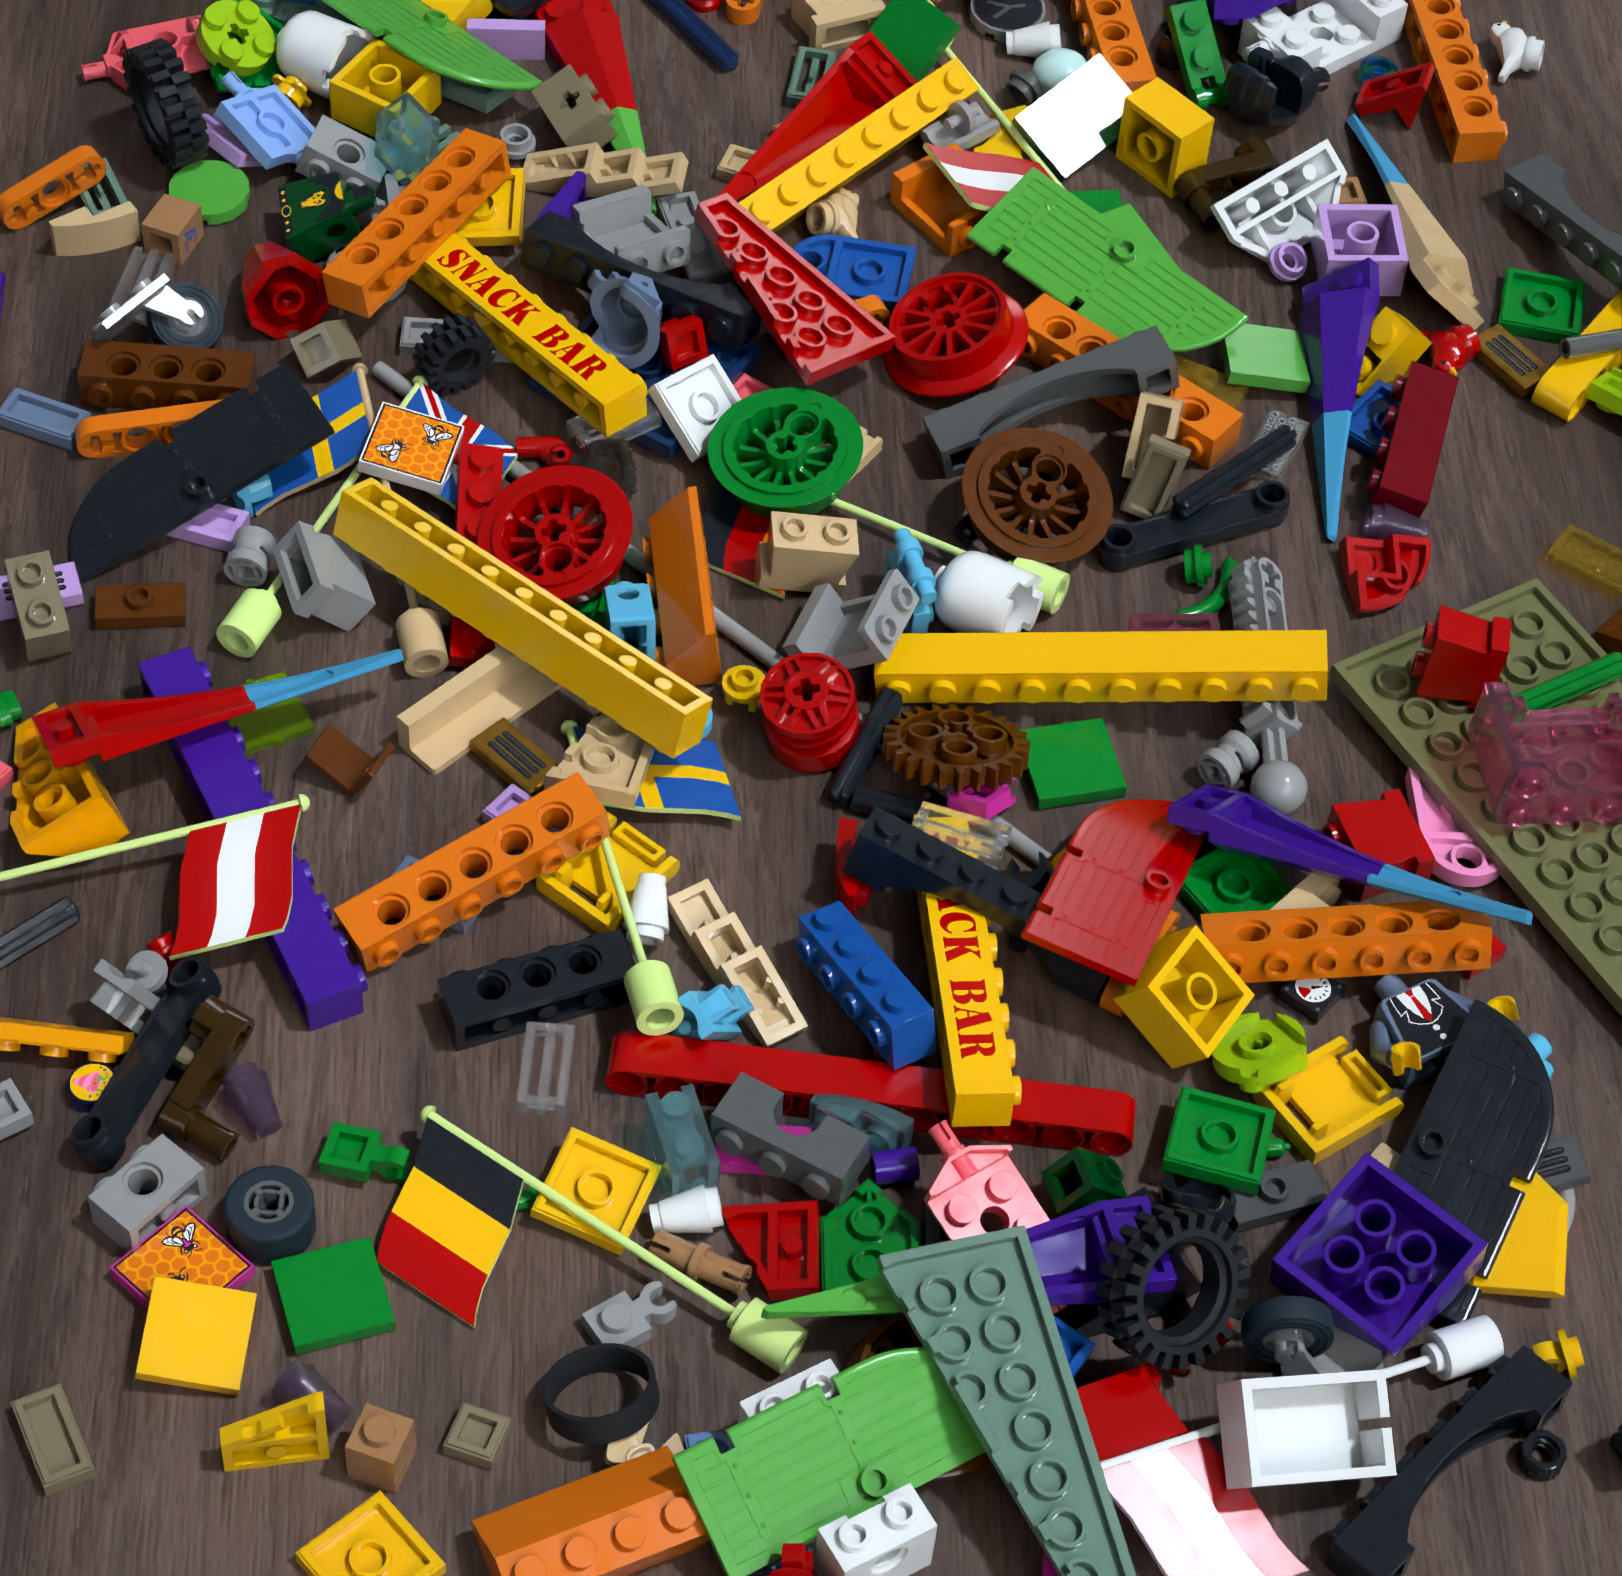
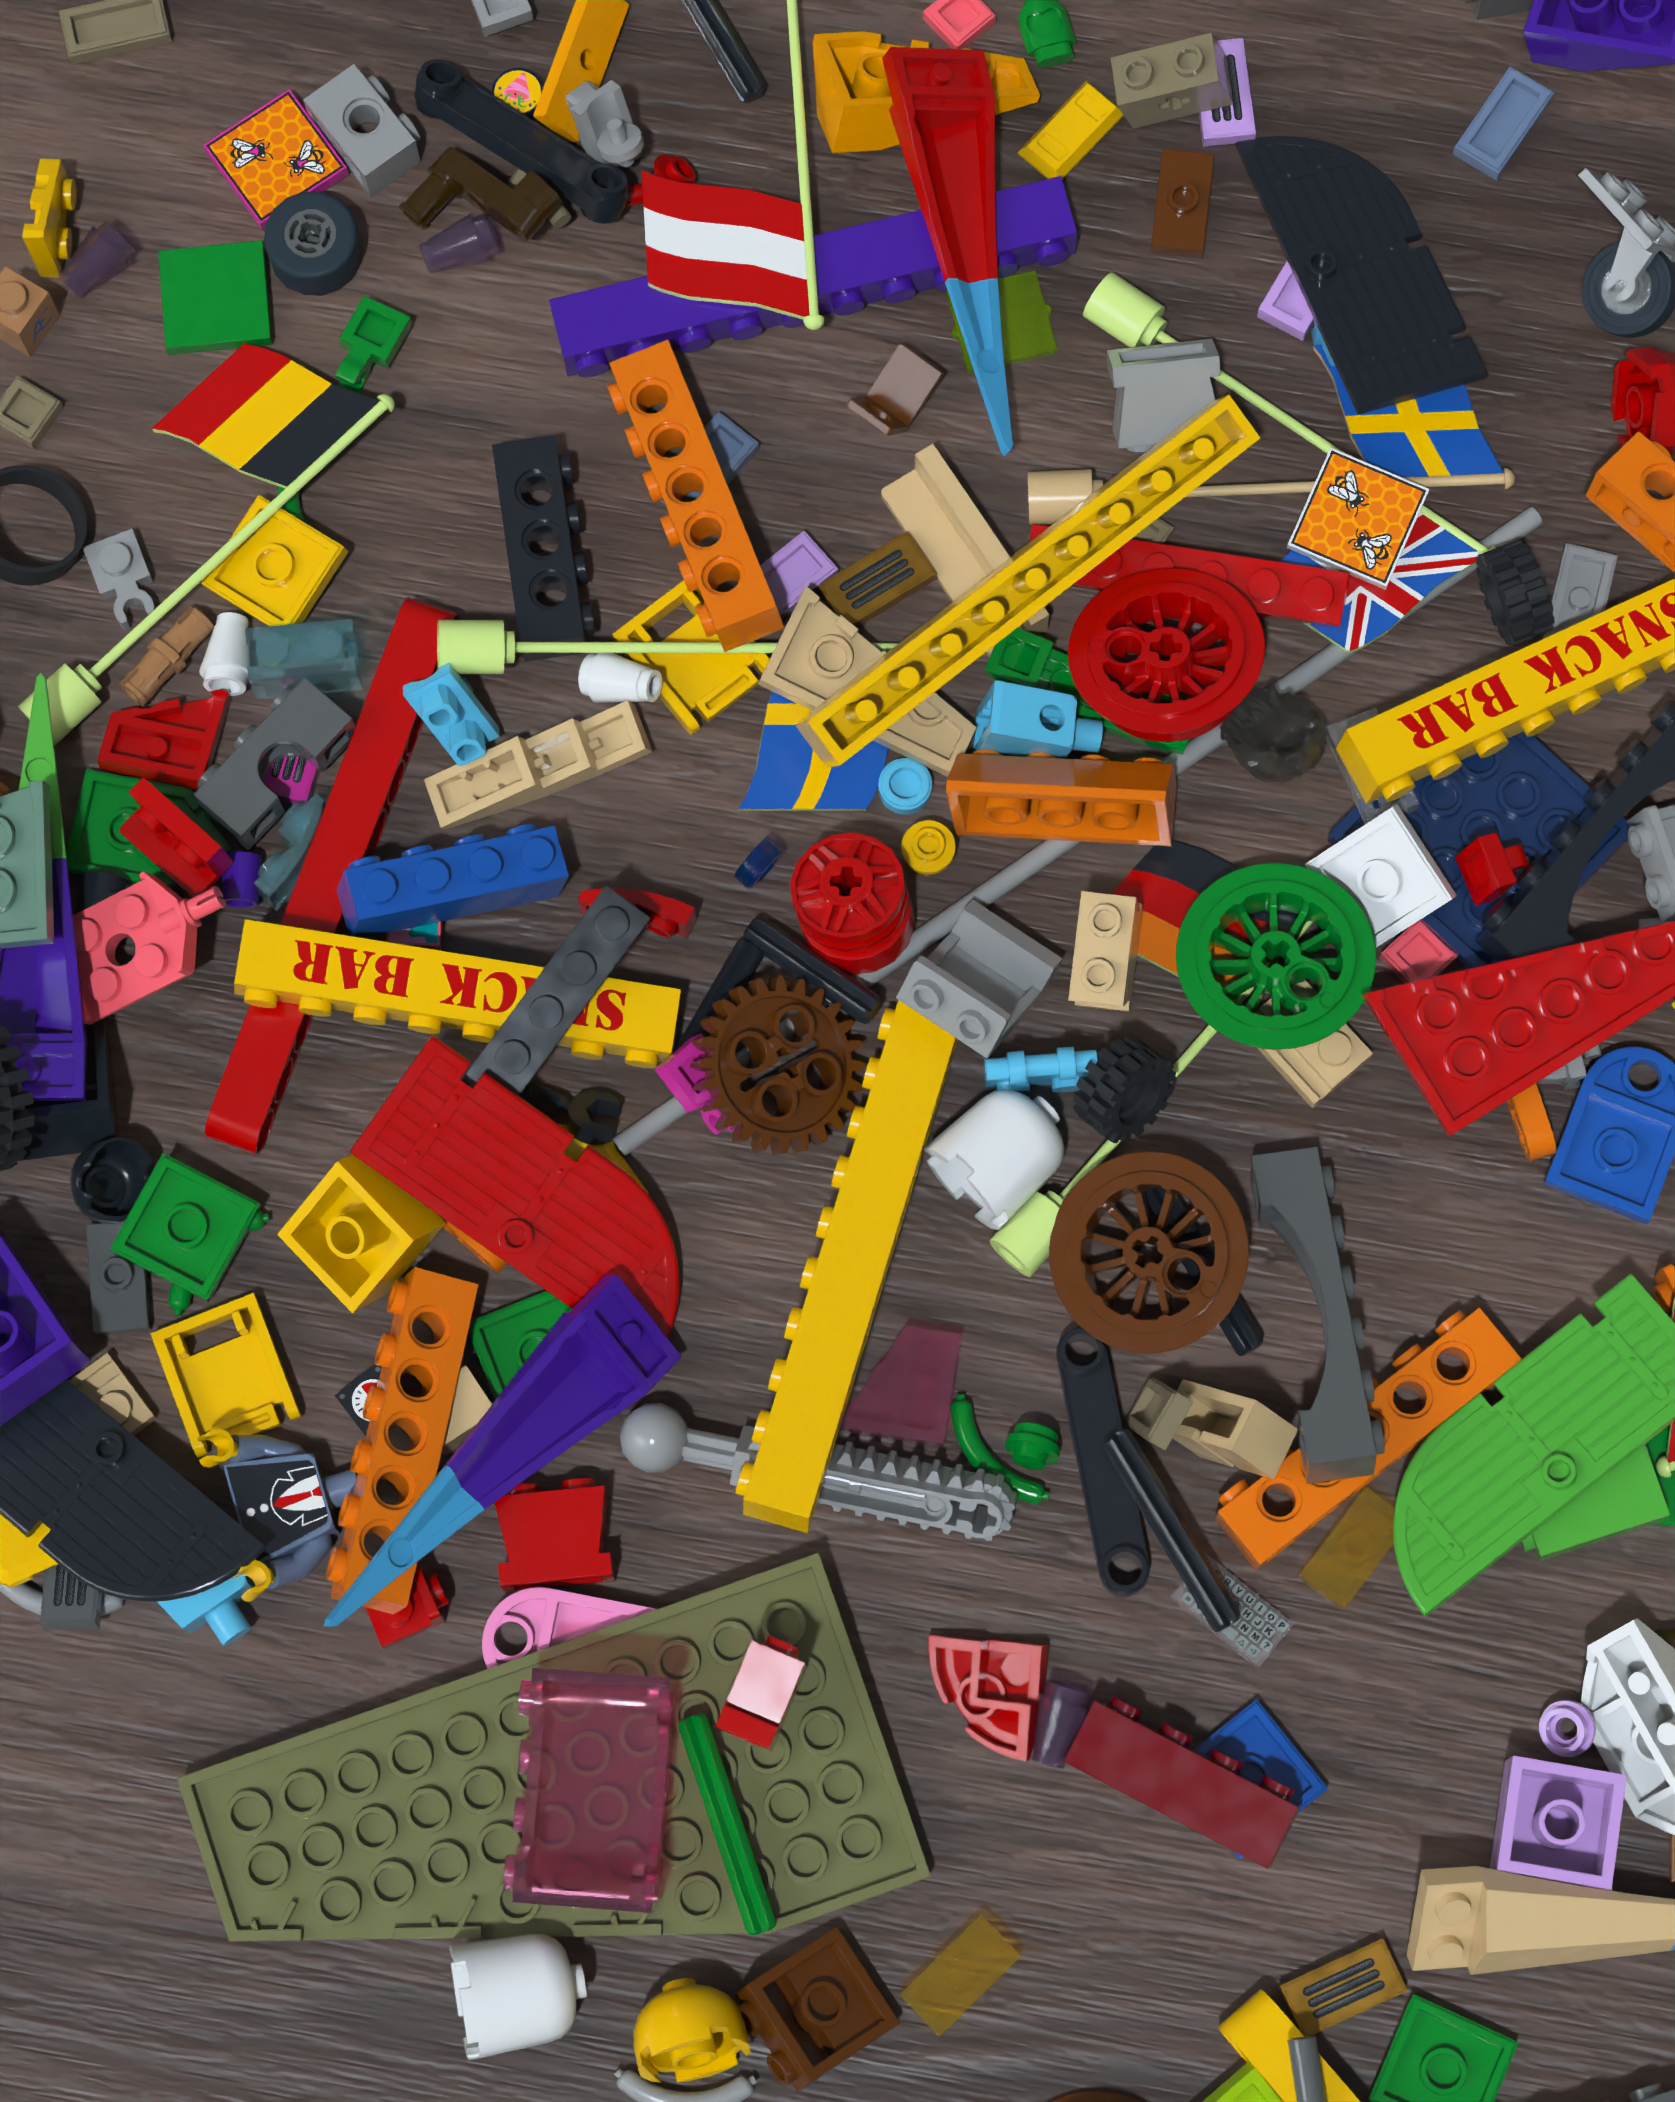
camera: 110 degrees right, 25 degrees up
(77, 683) = (1071, 132): none -> yellow tile
(156, 420) = (1455, 234): orange beam -> none
(160, 375) = (1519, 340): reddish brown brick -> none
(196, 1336) = (186, 158): yellow tile -> none
(250, 556) = (1229, 324): light grey wheel -> none
(325, 347) = (1566, 452): dark tan panel -> none
(542, 1101) = (490, 559): clear tile -> none
(546, 448) = (1361, 695): red arm -> none
(626, 316) = (1524, 804): sand blue helmet -> none
(784, 796) = (758, 863): none -> clear blue tile
(881, 1199) = (174, 841): none -> red bracket
(924, 518) = (1124, 1089): none -> black tyre
(945, 319) = (1470, 1227): red piece -> none
(965, 832) = (602, 1065): clear tile -> none
(1072, 764) = (756, 1210): green tile -> none
(1082, 1180) = (153, 1063): dark green brick -> none
(1231, 757) = (714, 1393): light grey wheel -> none
(1265, 358) = (1384, 1641): bright green tile -> none
(1278, 1051) = (274, 1331): lime plate -> none
(1334, 339) = (1396, 1739): dark purple plate -> none
(1390, 349) = (1368, 1804): yellow slope -> none
(1452, 348) = (1360, 1899): red animal -> none

